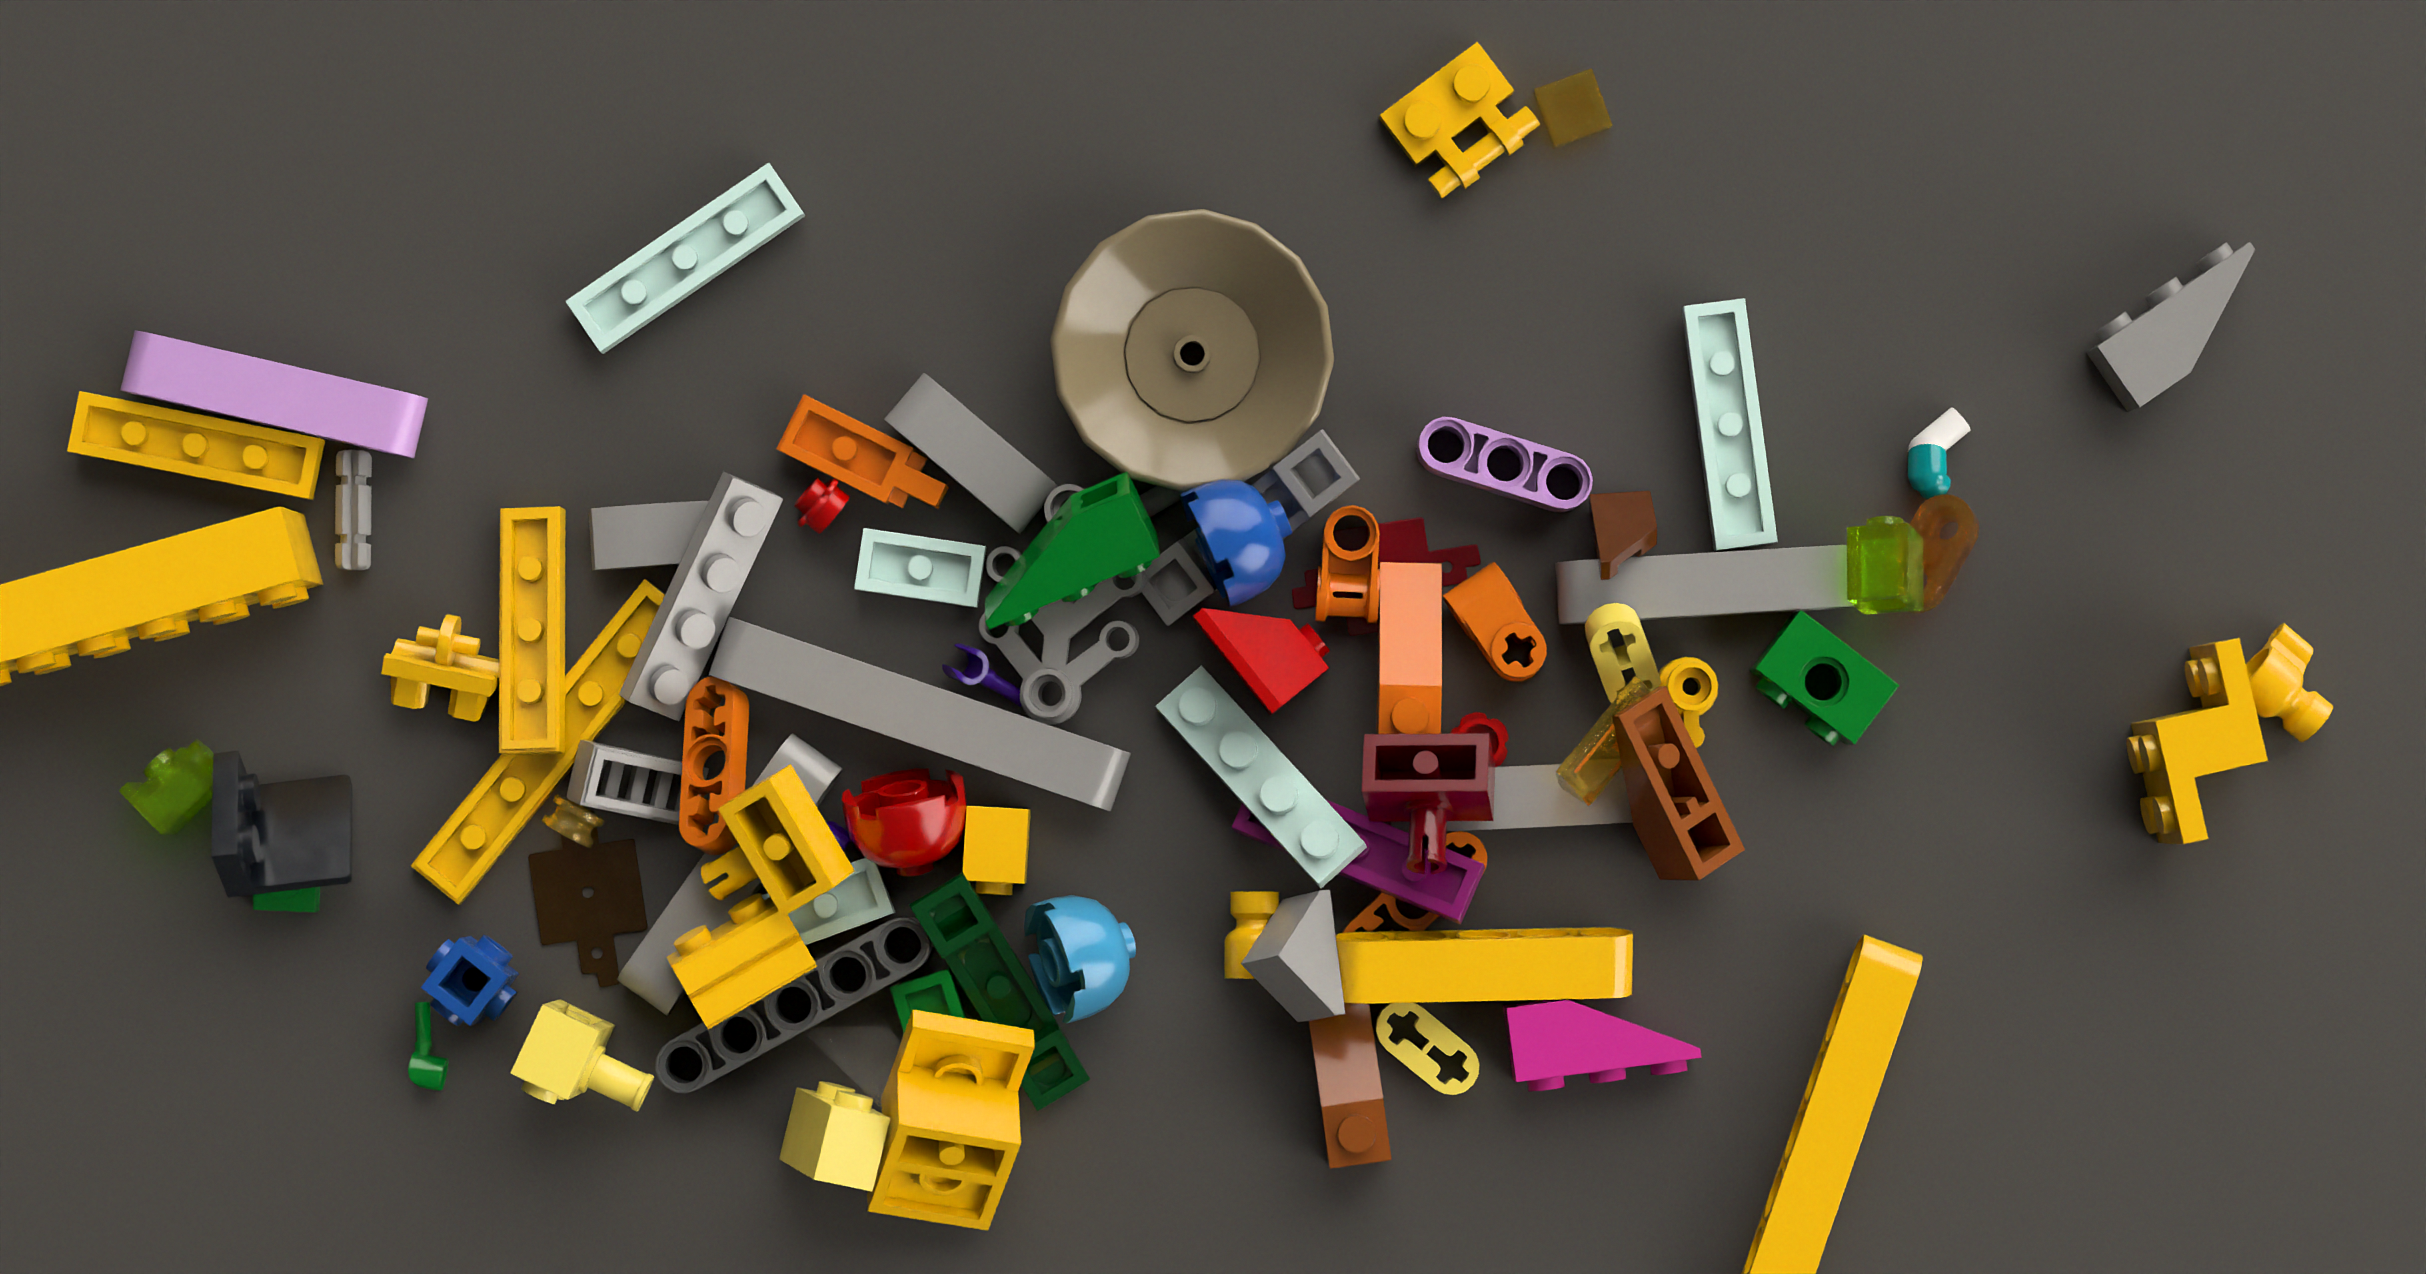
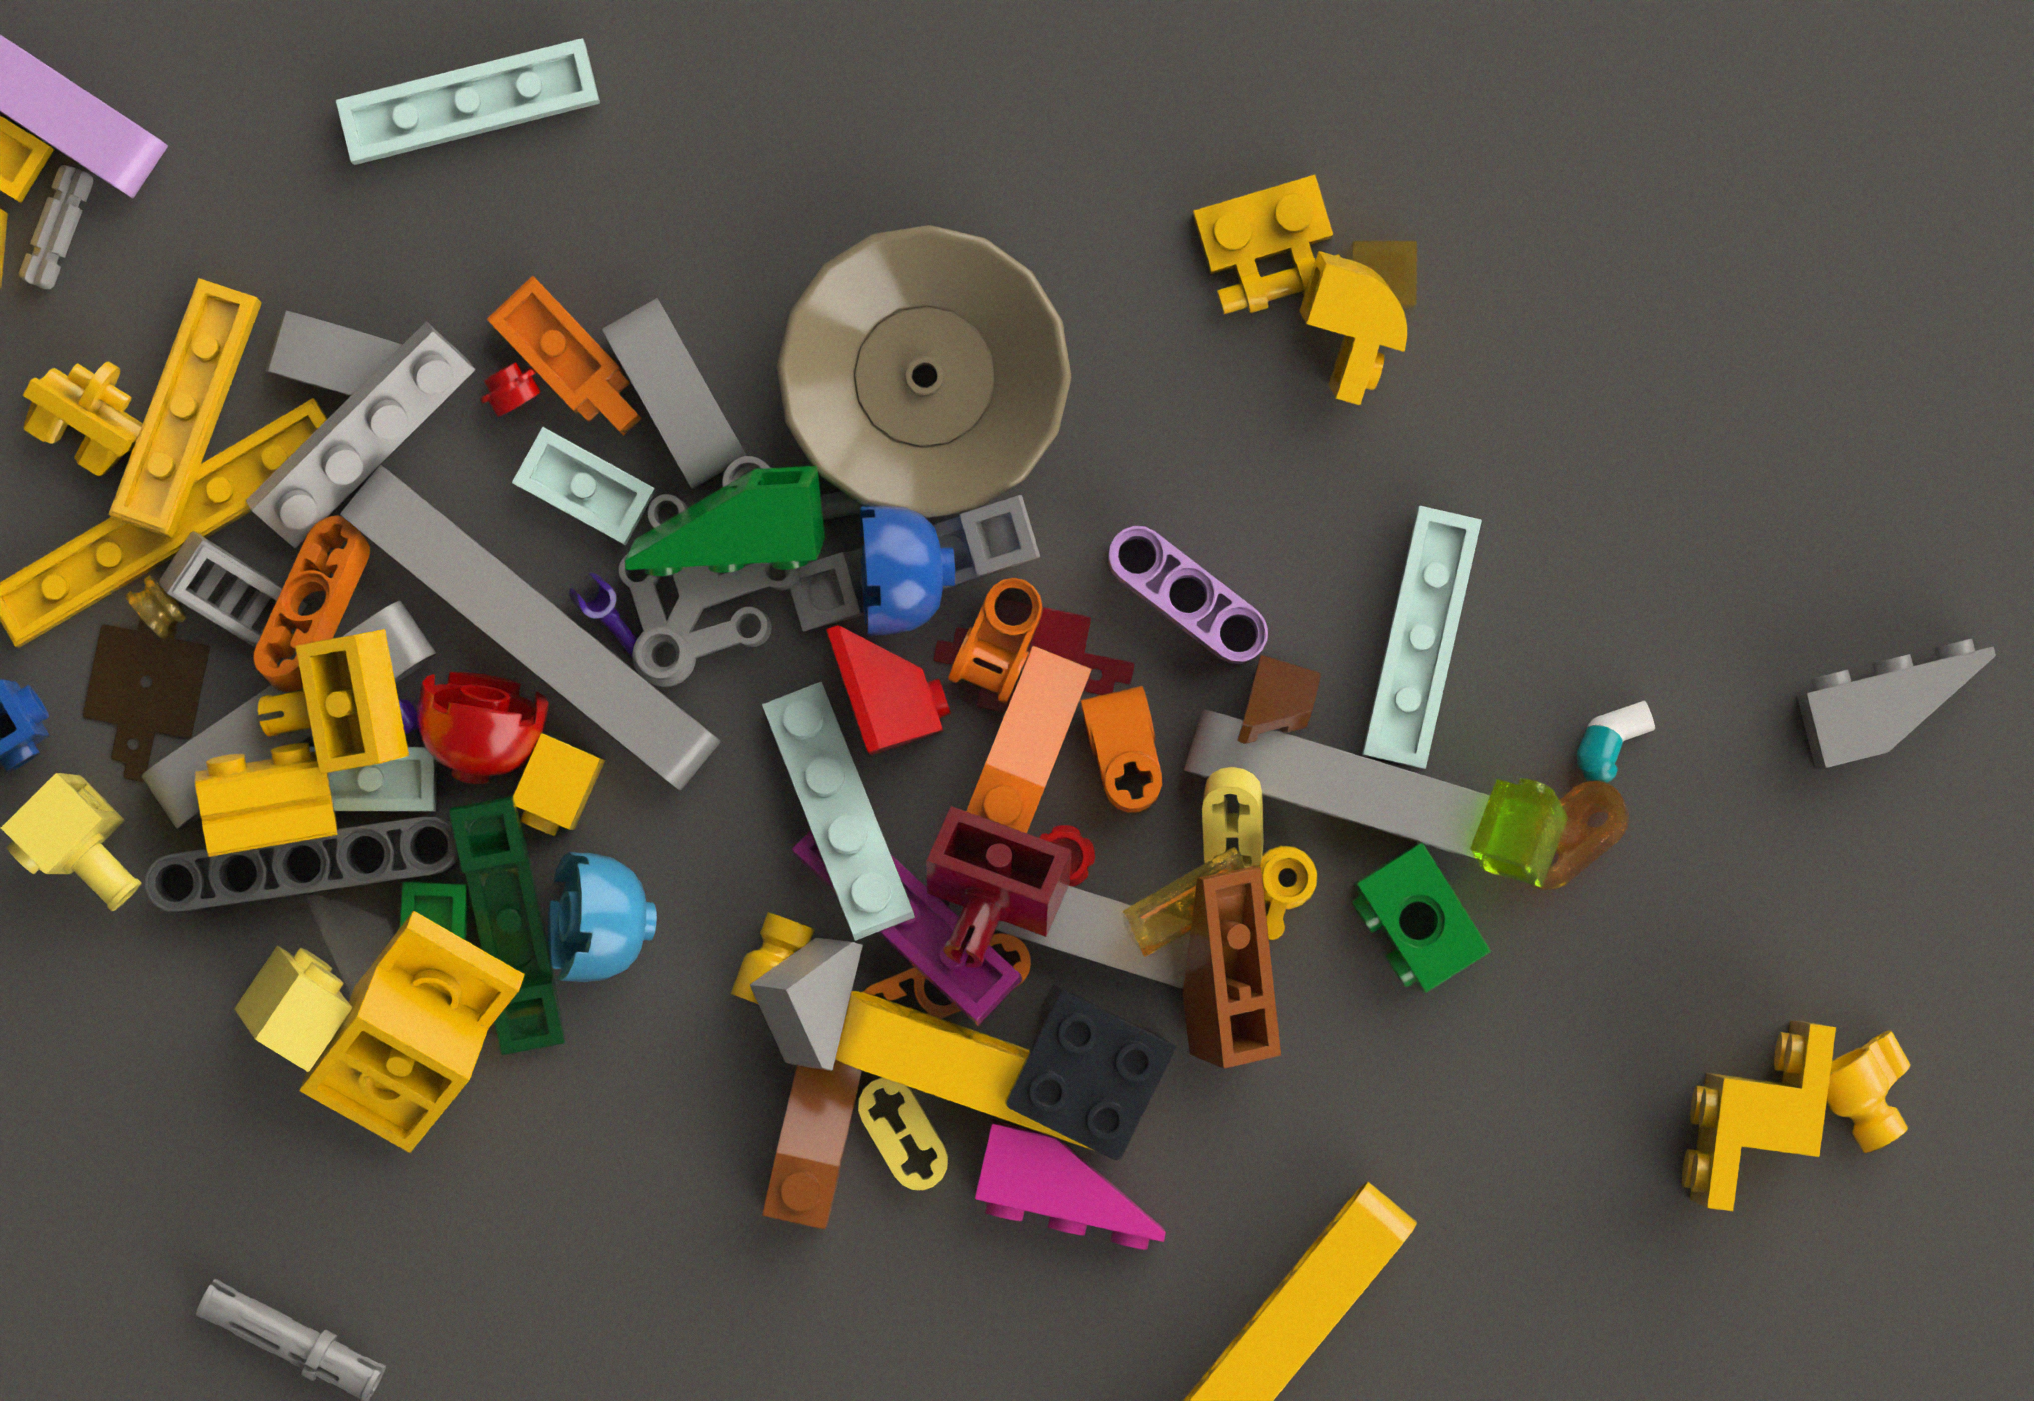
camera: 20 degrees right, 0 degrees up
(1567, 147) = (1363, 308): none -> yellow brick
(1578, 930) = (1089, 1074): none -> black bracket

